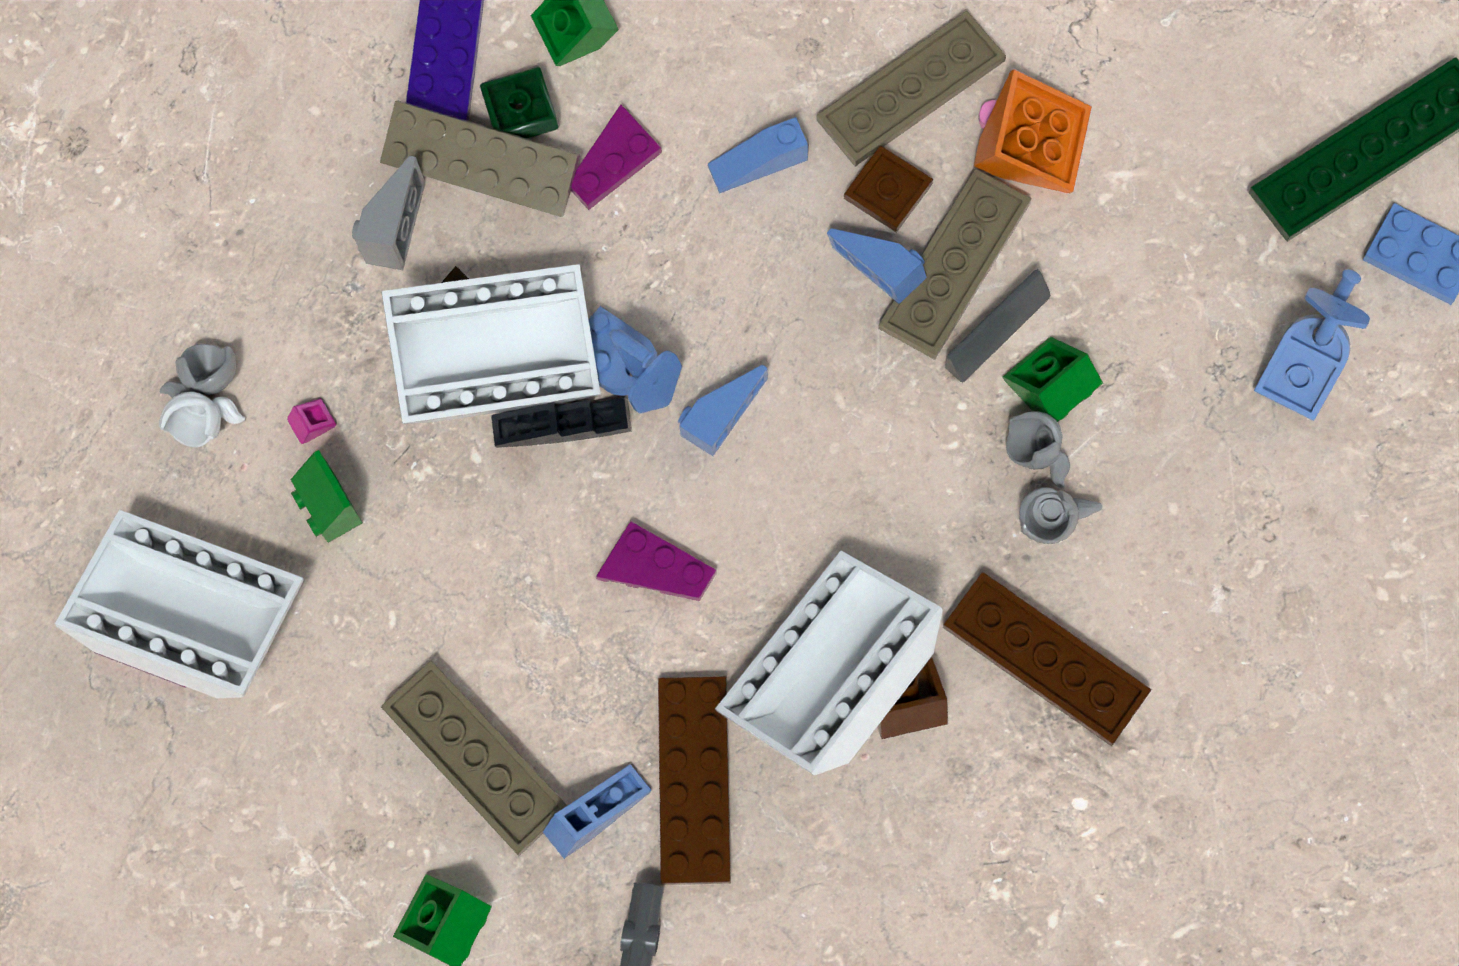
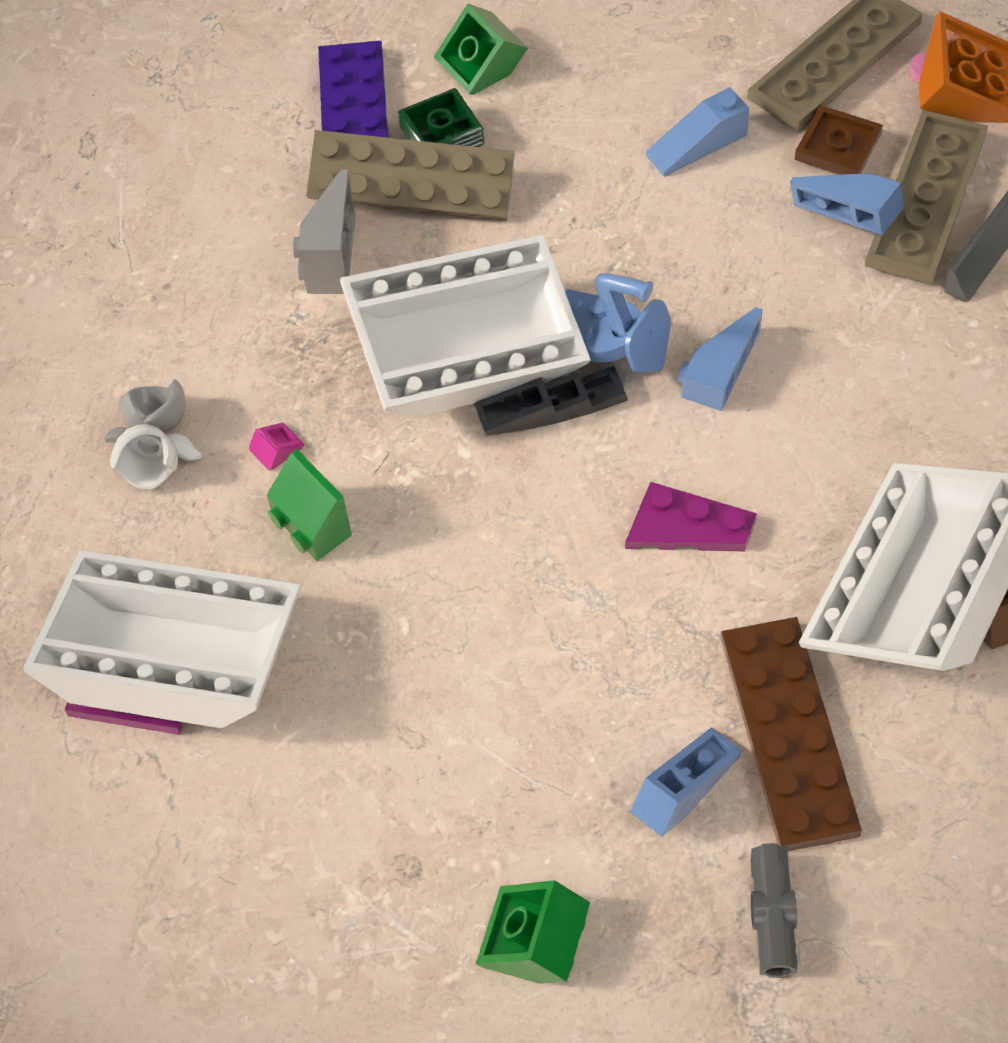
camera: 10 degrees left, 15 degrees down
(474, 757) = (532, 748): dark tan plate -> none
(613, 159) = (548, 161): magenta wing -> none

